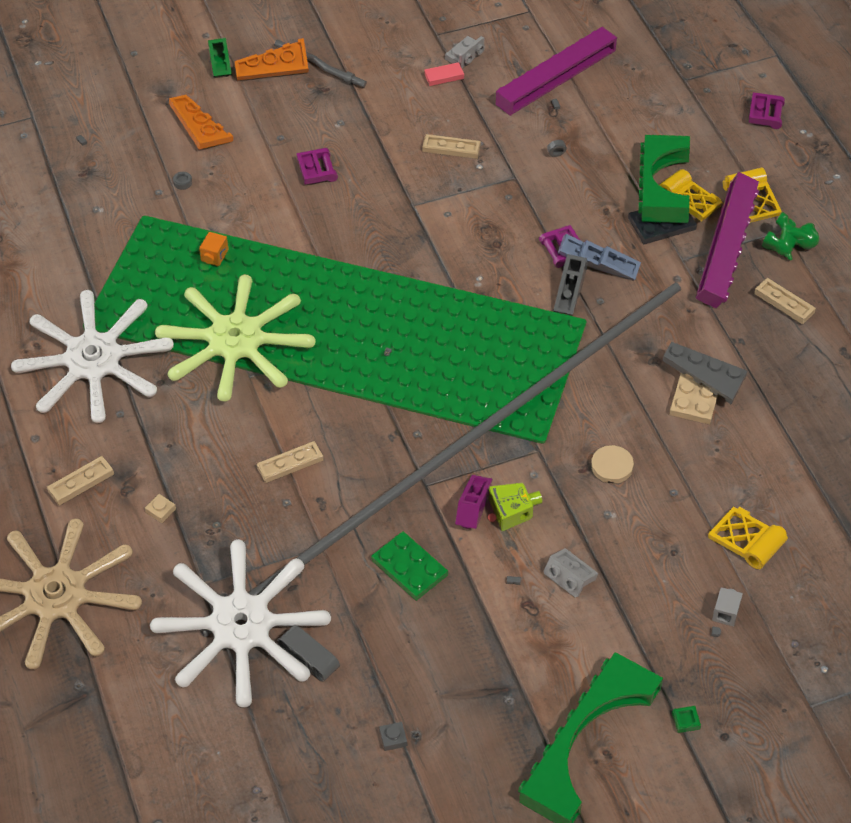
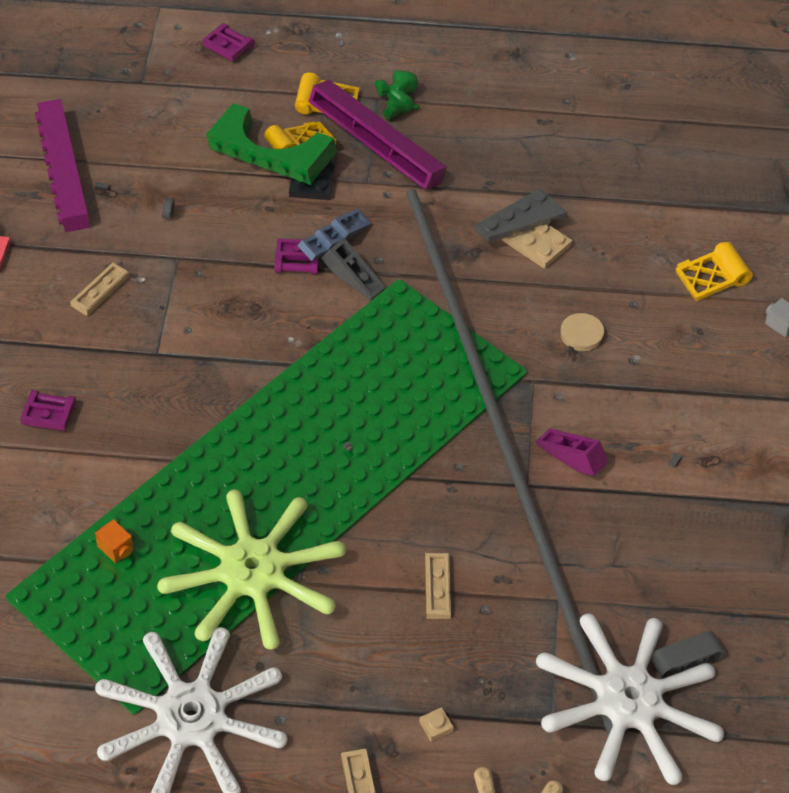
camera: 65 degrees left, 0 degrees up
(409, 565) = (619, 534): green plate -> none
(512, 504) = (594, 421): lime torso -> none
(569, 572) = (691, 412): light grey bracket -> none
(785, 301) = (466, 131): tan plate -> none

